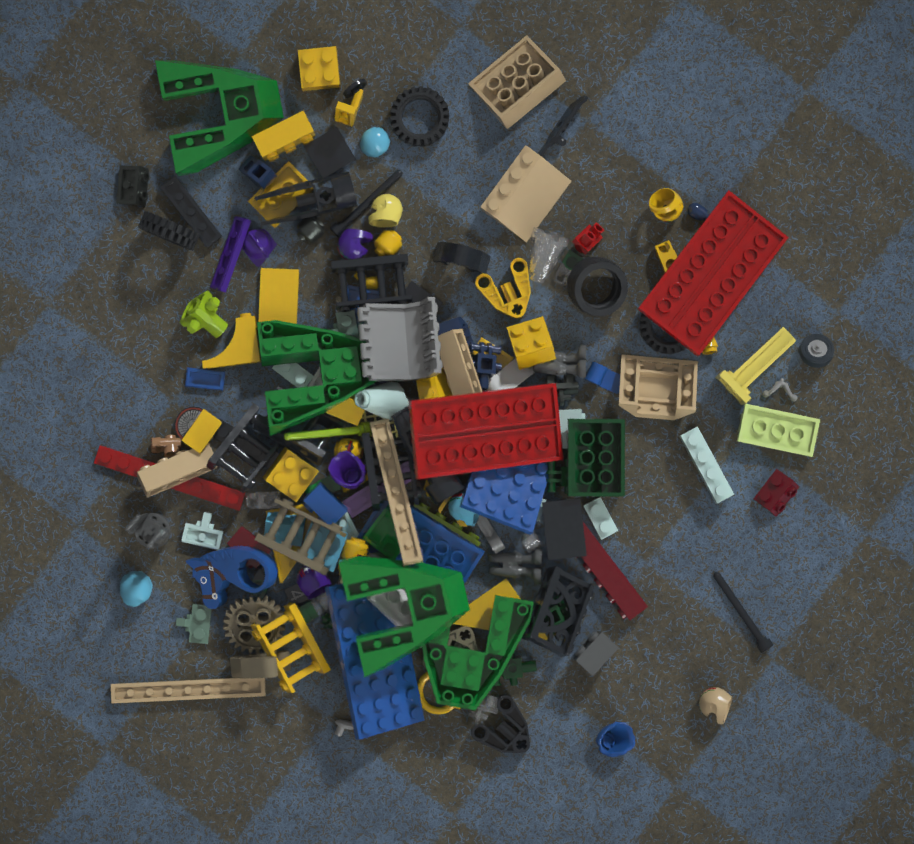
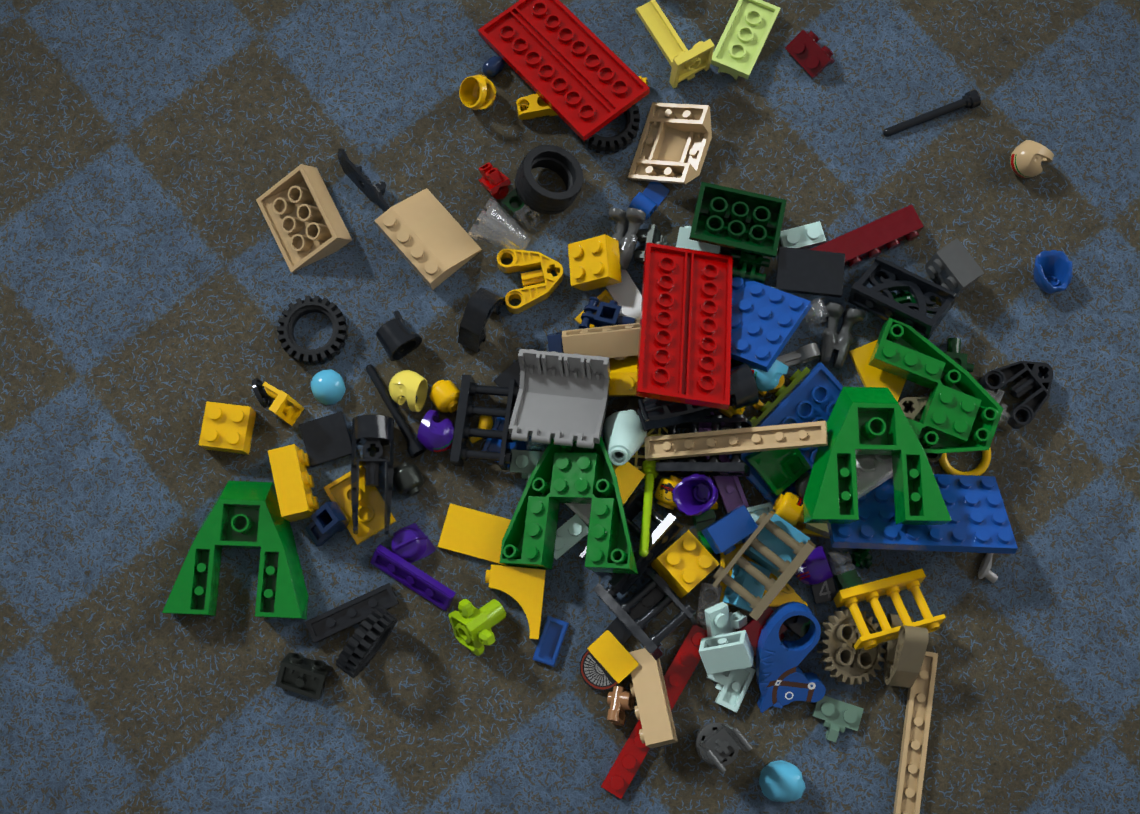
camera: 80 degrees left, 10 degrees down
(225, 521) = (726, 652): none -> light aqua brick
(247, 514) = (722, 621): none -> light aqua hinge
(428, 190) = (396, 336): none -> black hat
(706, 465) = (767, 114): light aqua brick -> none
(782, 384) = (695, 25): light grey piece -> none

